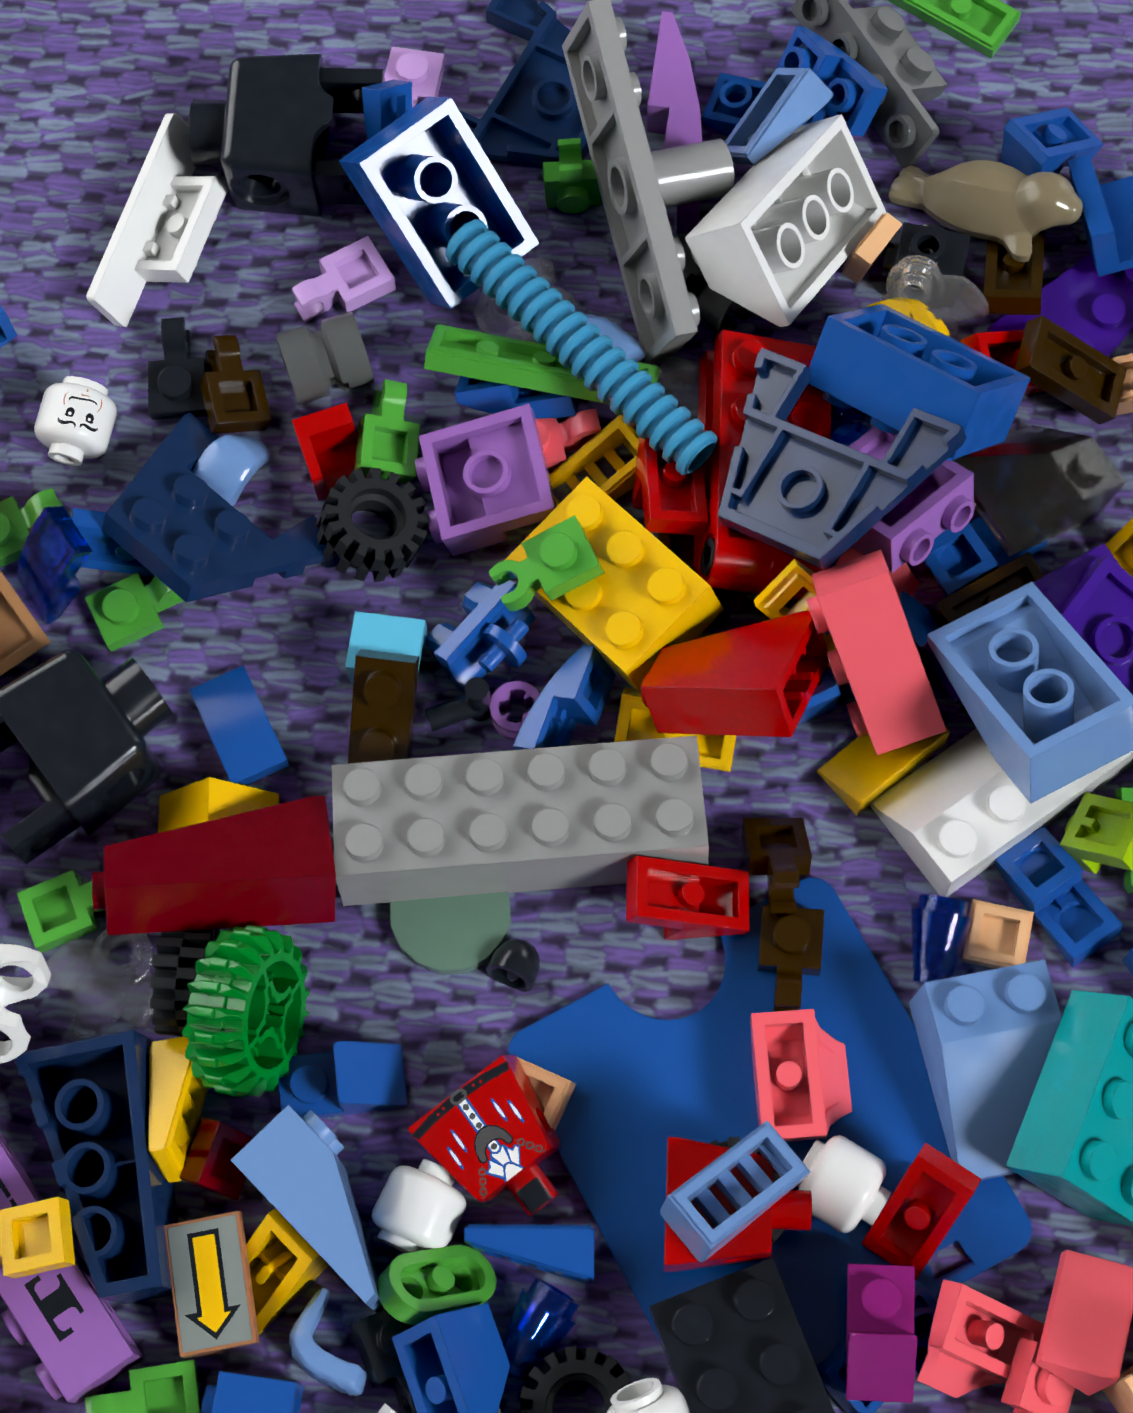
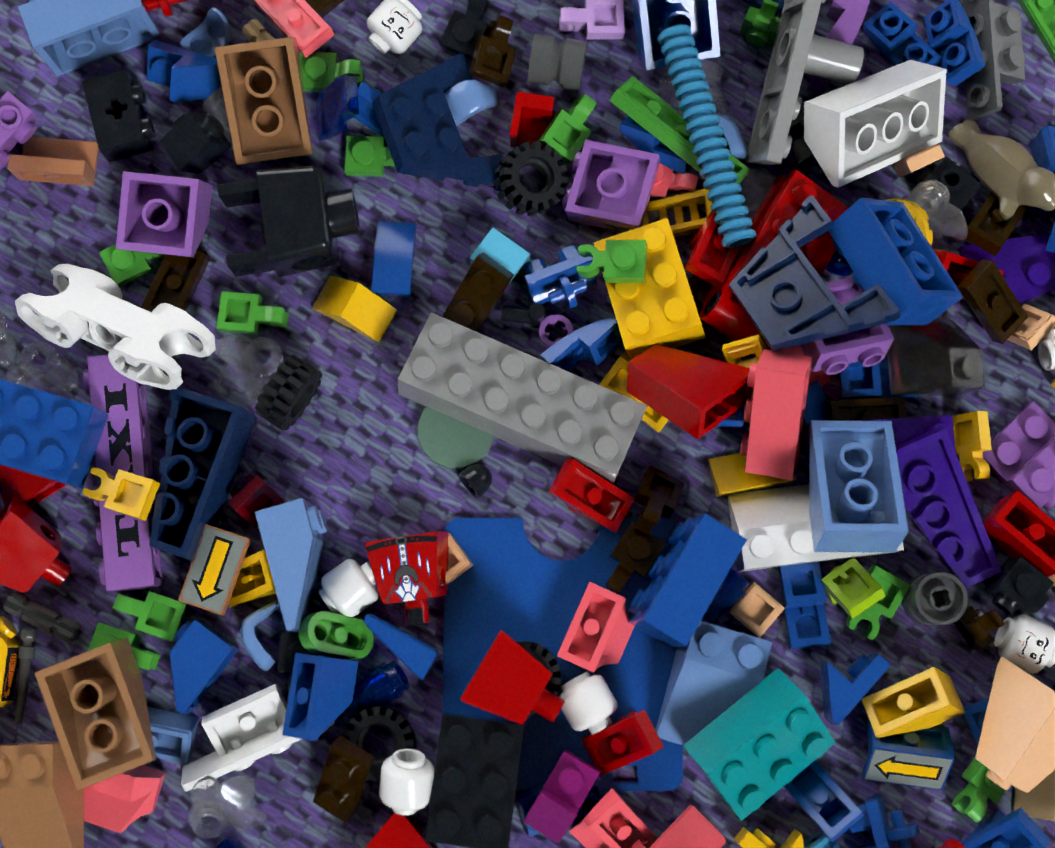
camera: 25 degrees right, 10 degrees up
(173, 1105) = (250, 453): yellow slope -> none
(223, 873) = (337, 343): dark red slope -> none
(246, 1011) = (310, 429): green gear -> none
(346, 1080) = (346, 493): blue slope -> none
(689, 1223) = (484, 689): medium blue slope -> none
(777, 111) = (907, 47): medium blue slope -> none
(880, 940) = (685, 580): none -> blue brick

